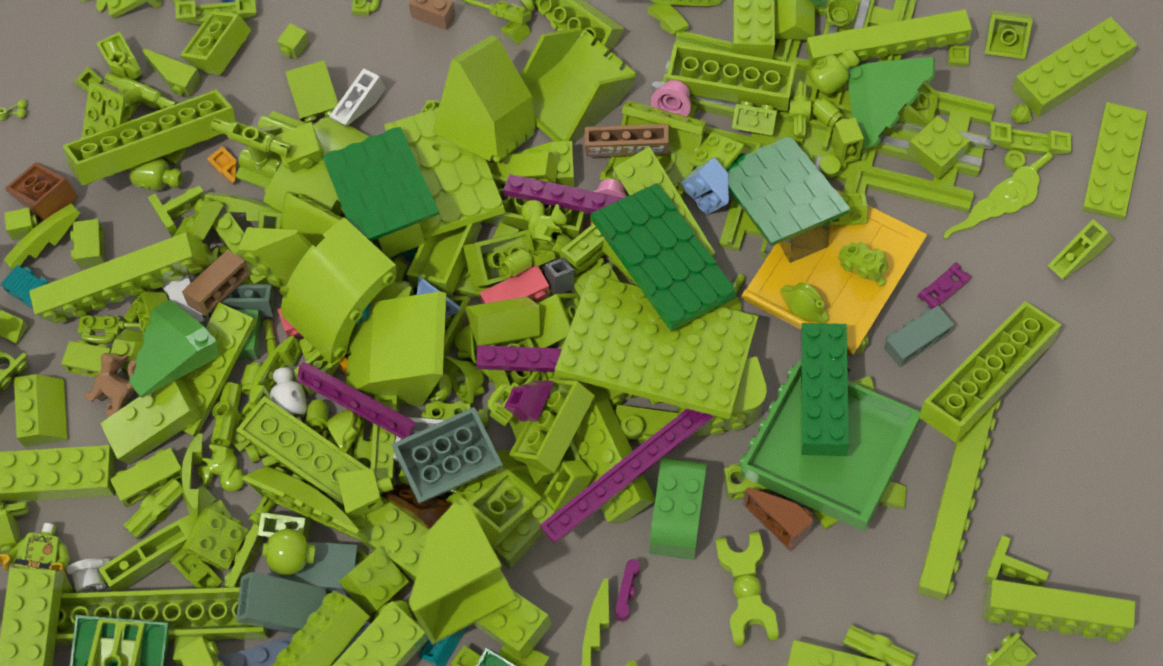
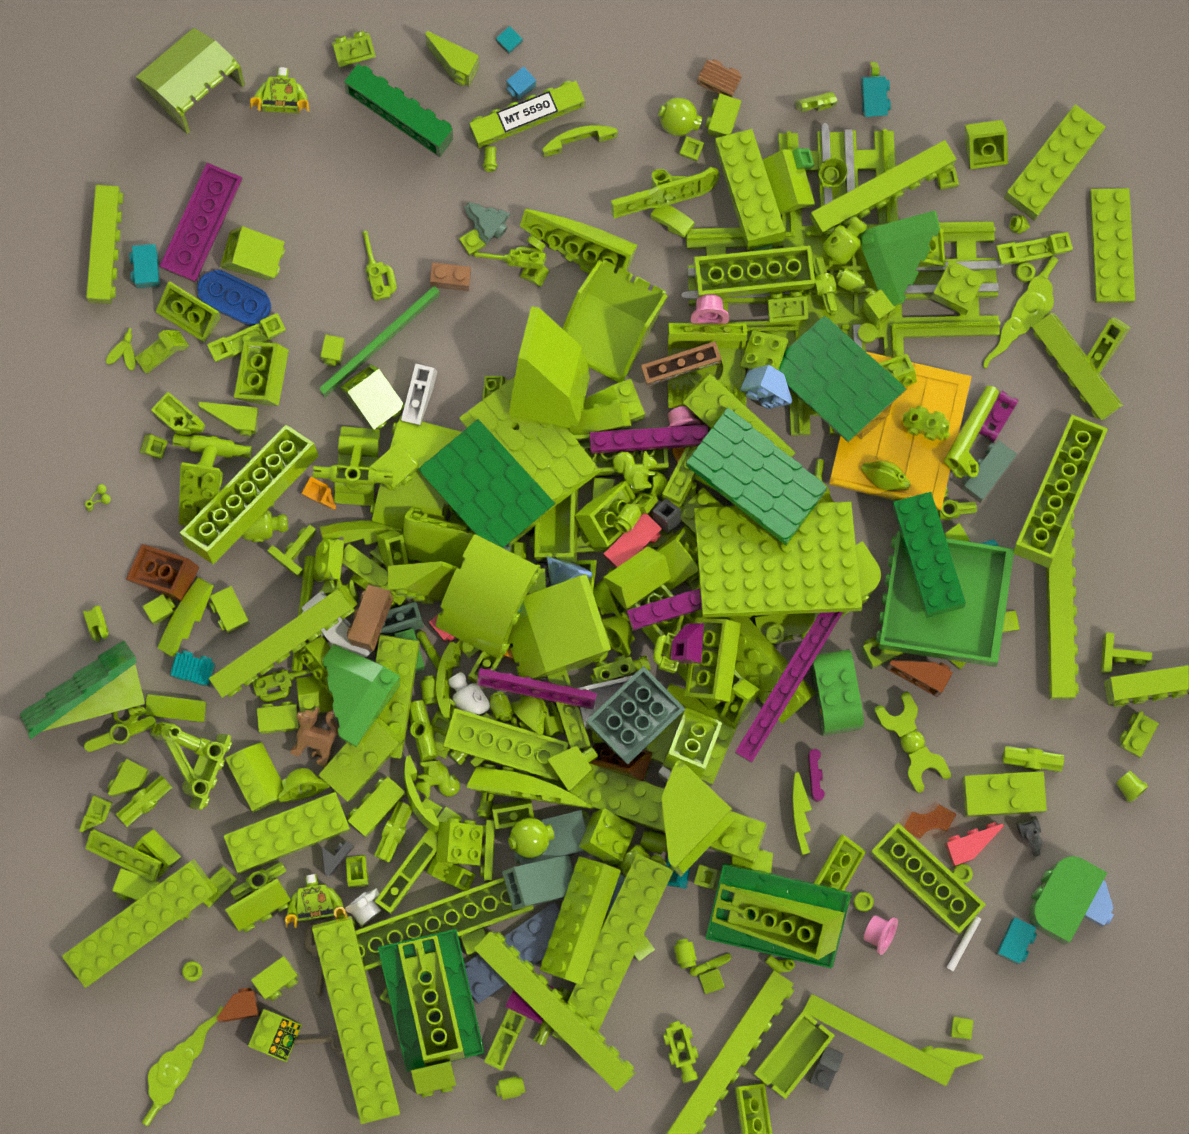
camera: 30 degrees left, 15 degrees up
(79, 519) = (332, 862): none -> dark grey slope
(80, 432) = (300, 785): none -> lime hat
(98, 539) = (357, 871): none -> lime slope
(342, 45) = (379, 341): none -> bright green tile
(872, 362) = (957, 509): none -> lime axle
(889, 304) = (958, 457): none -> lime axle
(1045, 260) = (1077, 366): none -> lime brick

